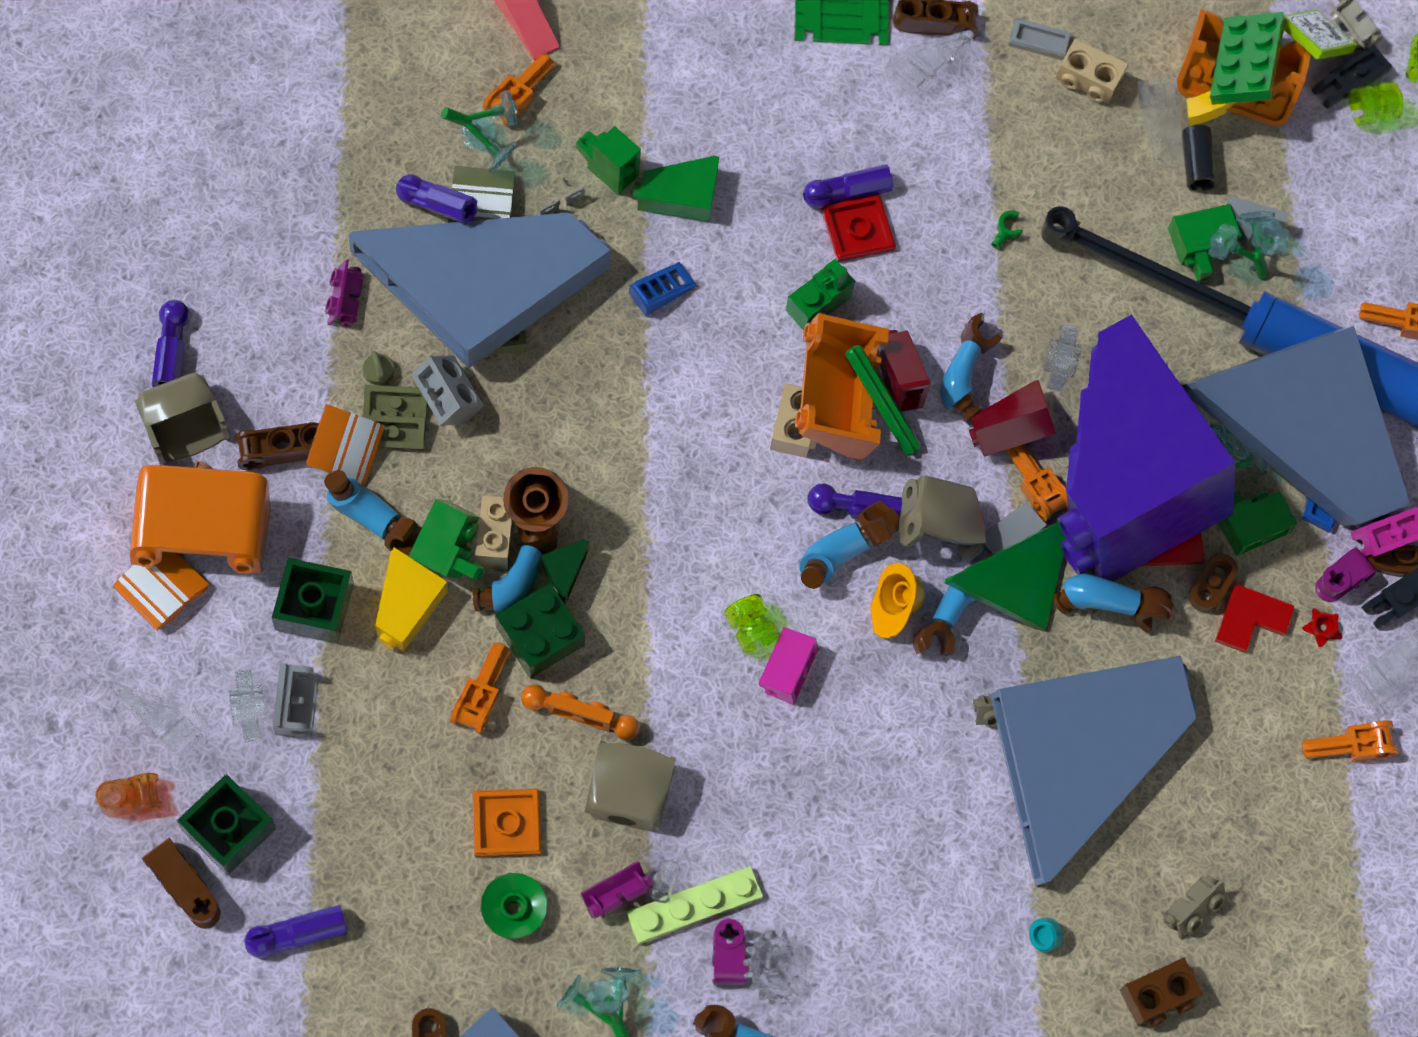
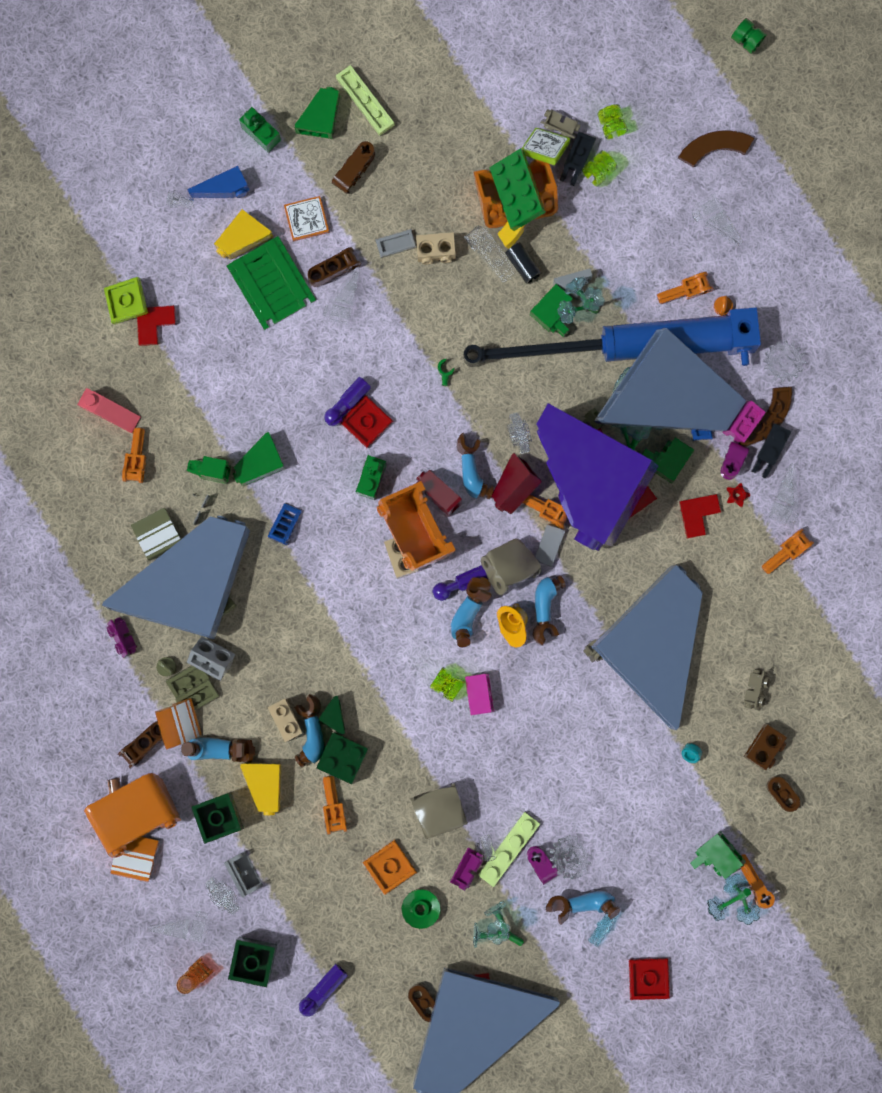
camera: 20 degrees left, 15 degrees up
(170, 347) = (41, 707): dark purple piece -> none
(181, 417) = (83, 762): dark tan piece -> none
(182, 883) = (250, 1003): reddish brown piece -> none
(436, 198) = (134, 553): dark purple piece -> none
(445, 540) = (264, 743): green hinge -> none
(480, 130) = (131, 497): clear light blue plant -> none
(535, 499) = (297, 693): dark orange cone -> none
(569, 707) = (362, 794): orange plate -> none
(883, 399) = (440, 518): green axle -> none
(1018, 578) = (569, 572): green tile -> none
(1099, 593) = (622, 553): piece -> none
(1211, 583) = (669, 508): reddish brown plate -> none

